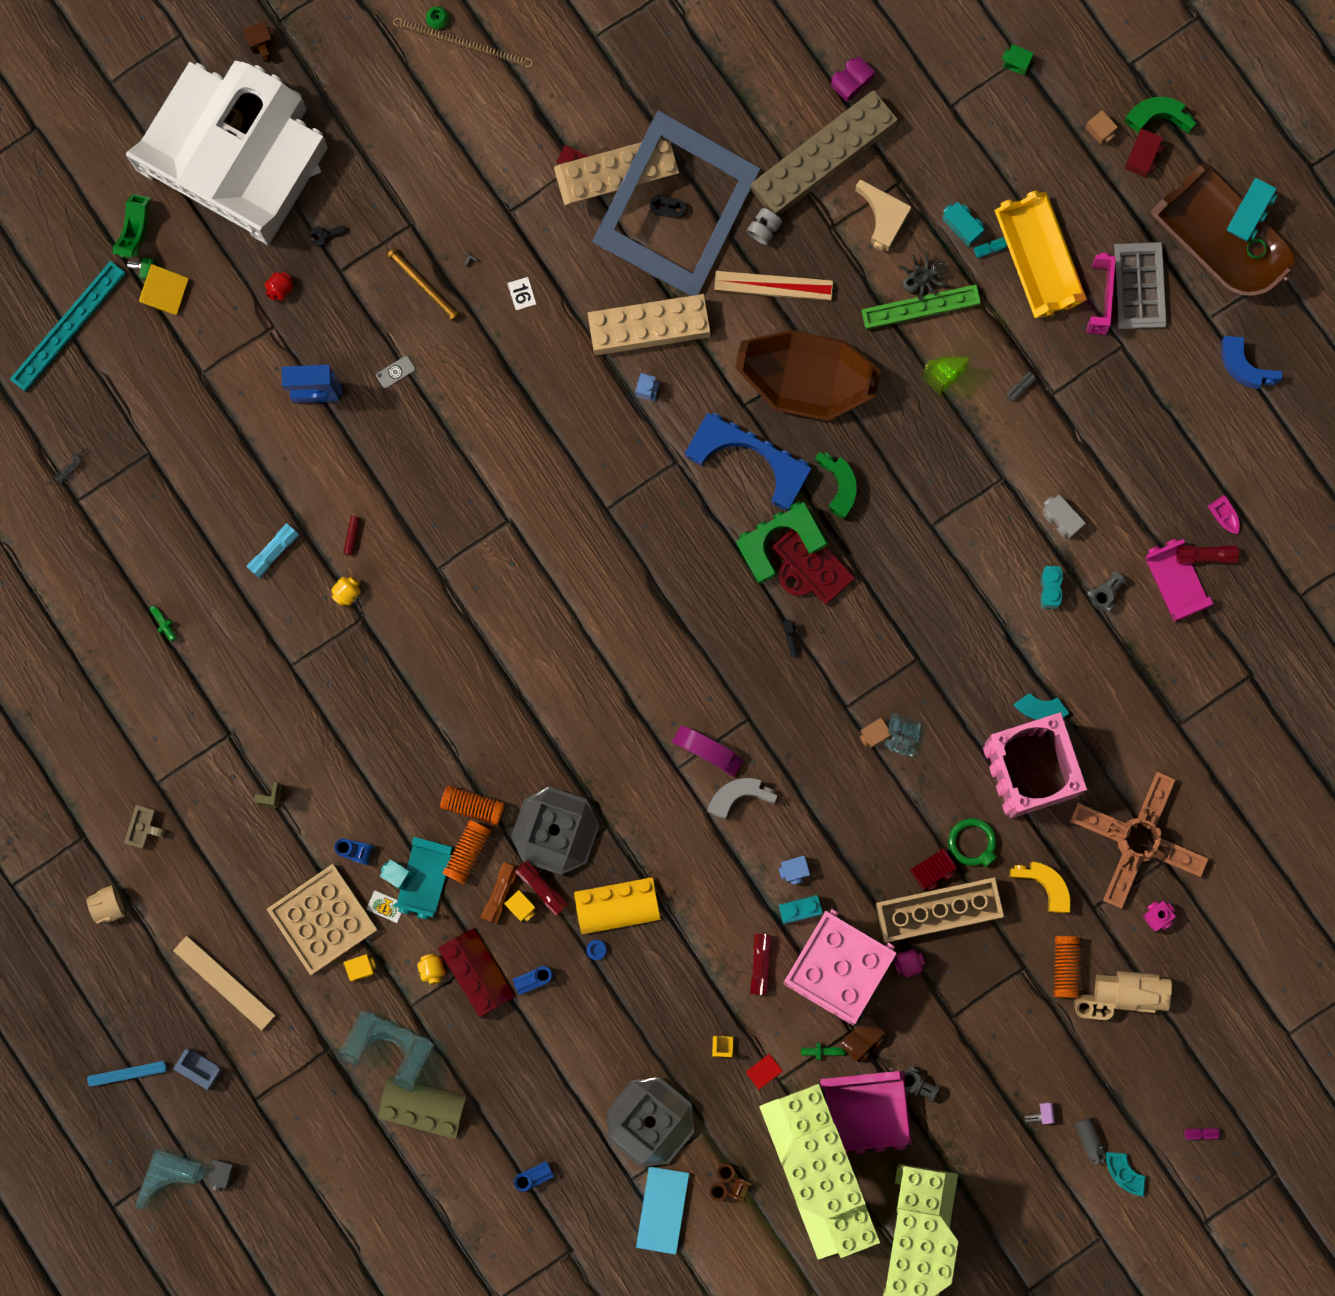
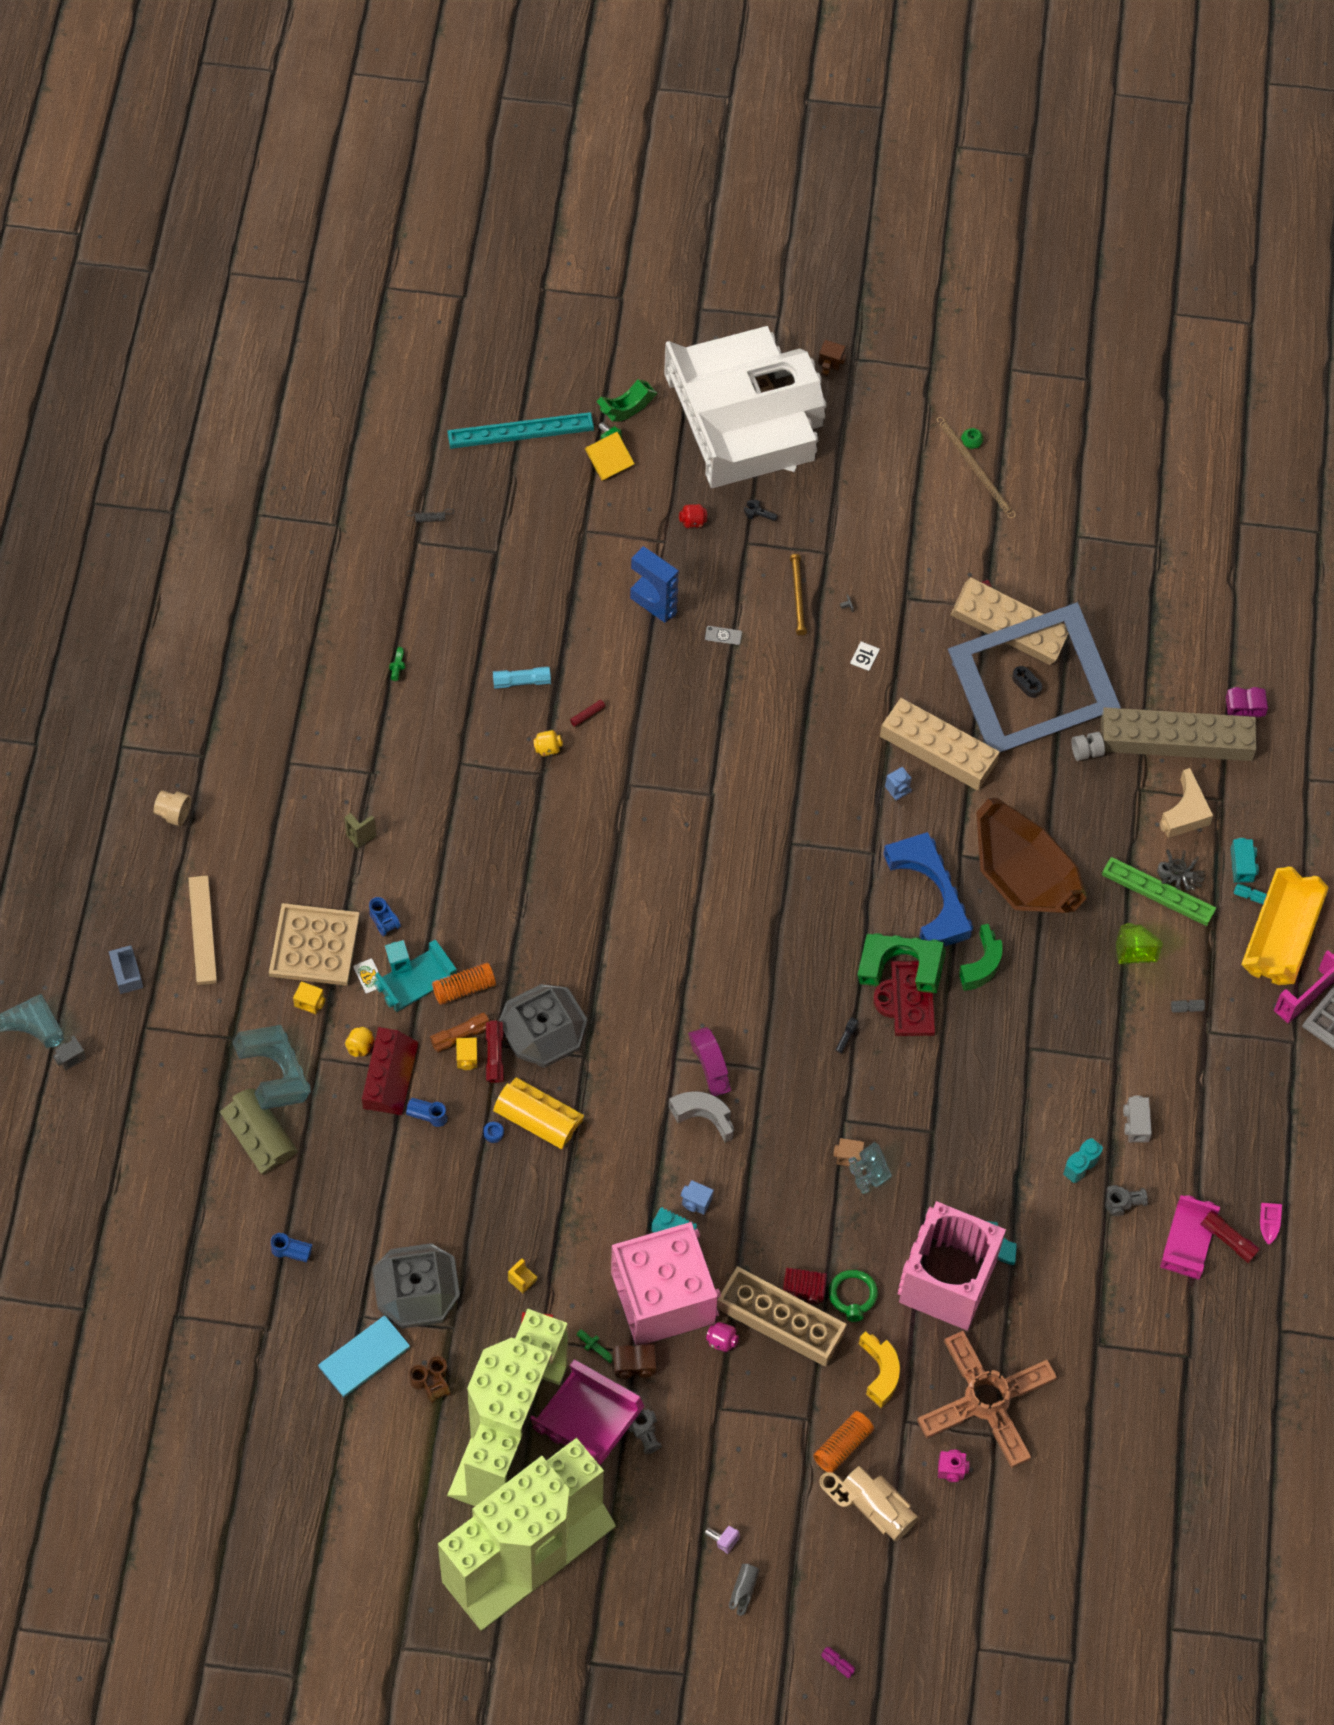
camera: 30 degrees right, 20 degrees down
(127, 1073) = (73, 932): dark azure axle -> none
(141, 827) = (249, 780): dark tan plate -> none
(497, 810) = (512, 970): orange piece -> none
(759, 978) = (619, 1232): dark red axle -> none
(773, 286) = (1058, 792): tan tile -> none
(1124, 1175) = (746, 1640): teal tile -> none

